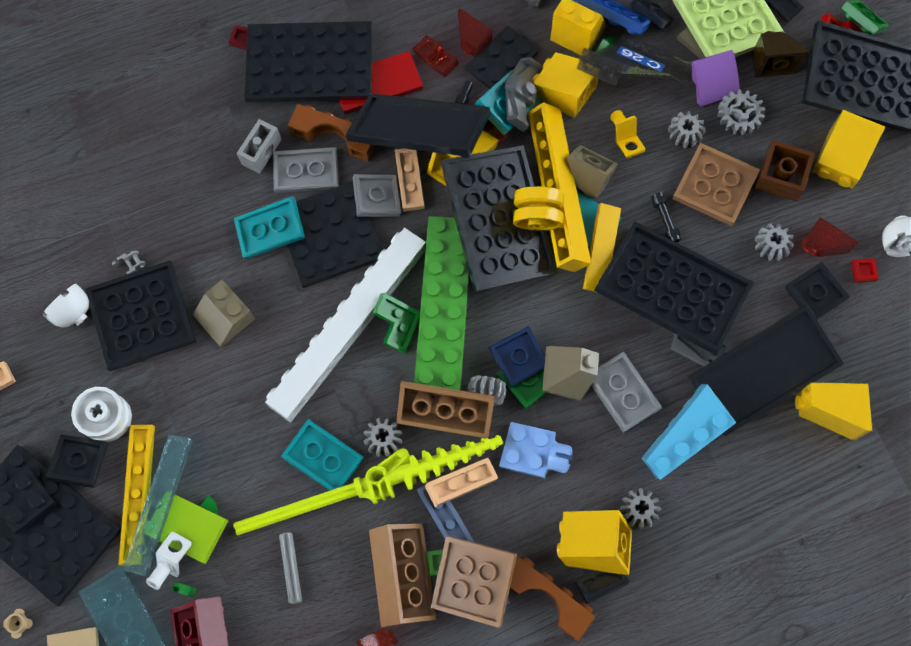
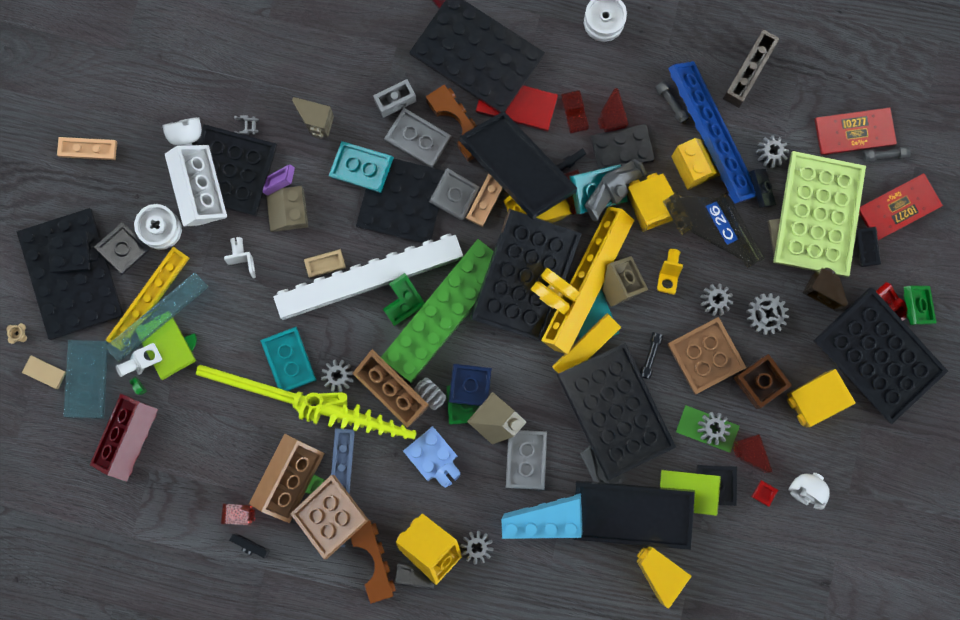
camera: 30 degrees right, 10 degrees up
(113, 348) = (195, 184): none -> white slope
(190, 210) = (315, 116): none -> dark tan slope
(195, 289) = (278, 180): none -> medium lavender tile
(203, 388) = (239, 256): none -> white bracket
(290, 568) = (216, 421): light grey axle -> none
(295, 341) = (324, 263): none -> tan tile
(461, 482) = (368, 444): light nougat plate -> none
(607, 42) = (710, 190): green tile -> none
(715, 77) = (767, 275): medium lavender slope -> none
(750, 259) = (689, 425): none -> bright green sticker
(809, 293) = (705, 487): none -> lime tile

